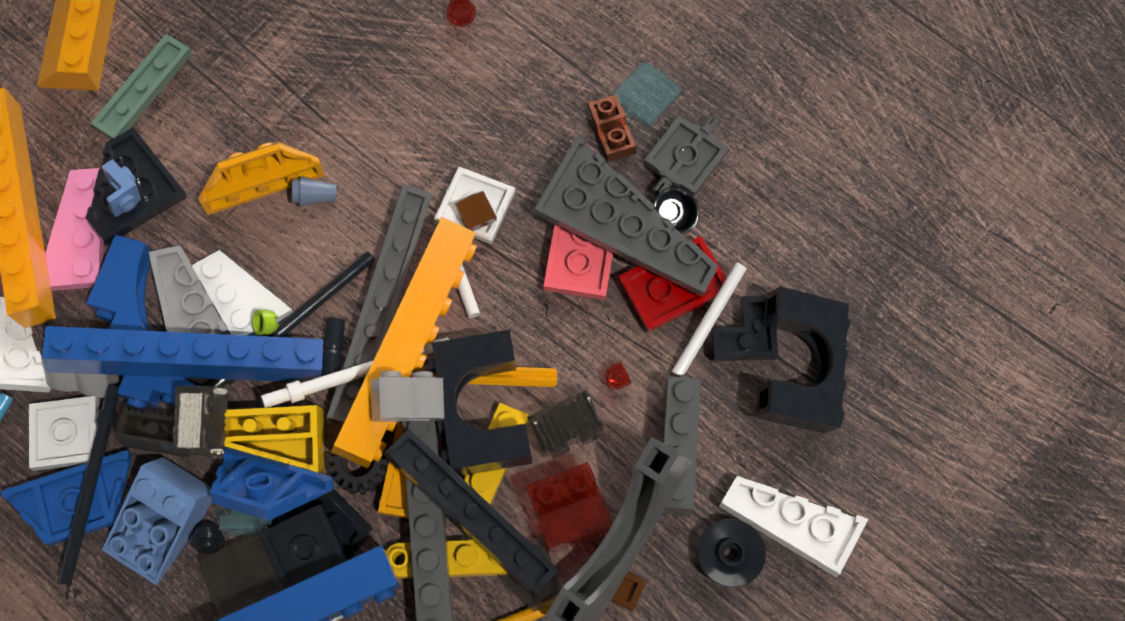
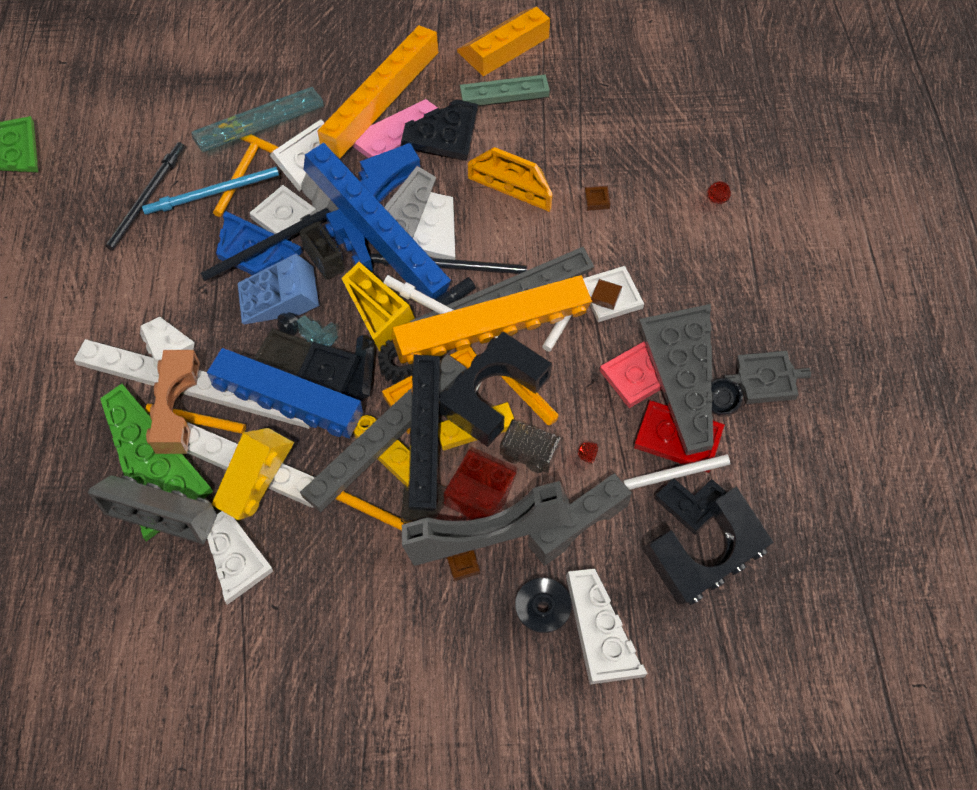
camera: 50 degrees right, 10 degrees down
(126, 192) = (434, 127): medium blue bracket -> none
(199, 420) = (345, 256): clear smoke brick -> none
(264, 322) = (433, 247): lime hinge -> none
(264, 485) = (341, 320): blue wing -> none
(311, 191) = (531, 210): sand blue cone -> none
(356, 120) = (597, 198): none -> reddish brown tile
(407, 398) = (455, 340): light grey brick -> none
(612, 128) = (738, 324): copper slope -> none
(647, 93) = (783, 326): clear light blue piece -> none

